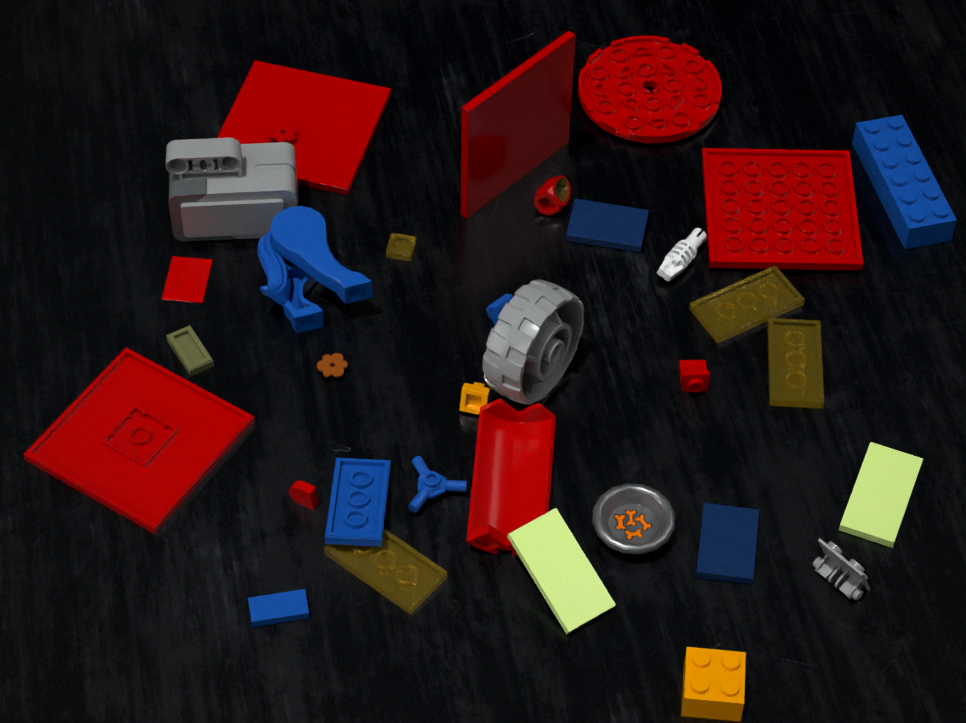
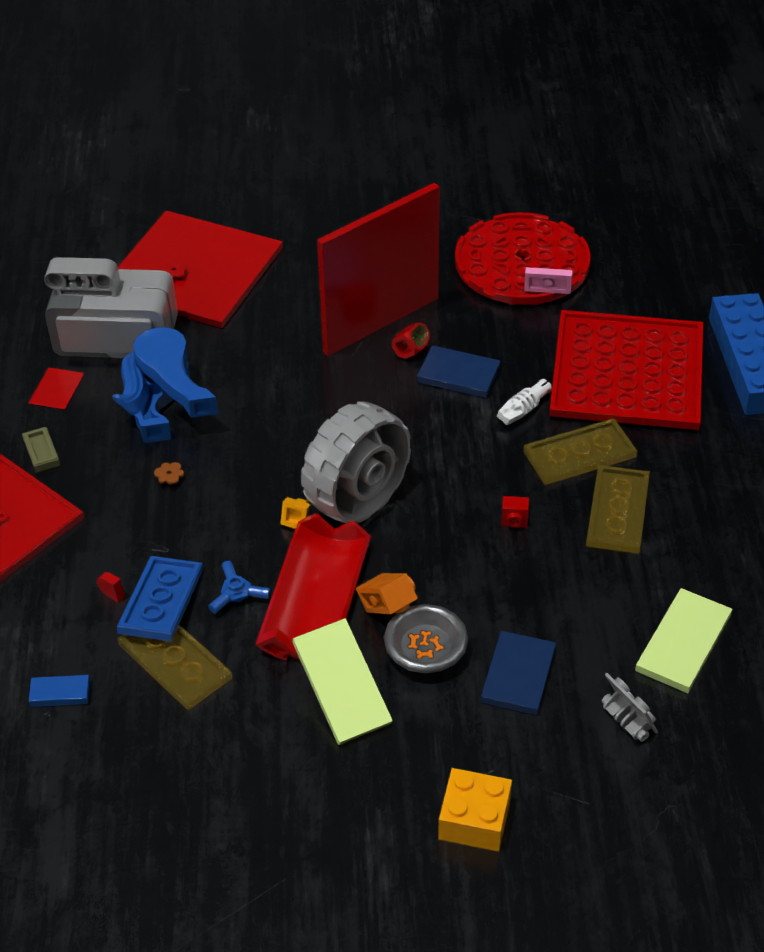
camera: 10 degrees right, 5 degrees down
(400, 247) = (259, 375): clear yellow tile -> none
(587, 476) = (387, 593): none -> orange brick
(684, 116) = (548, 280): none -> bright pink plate

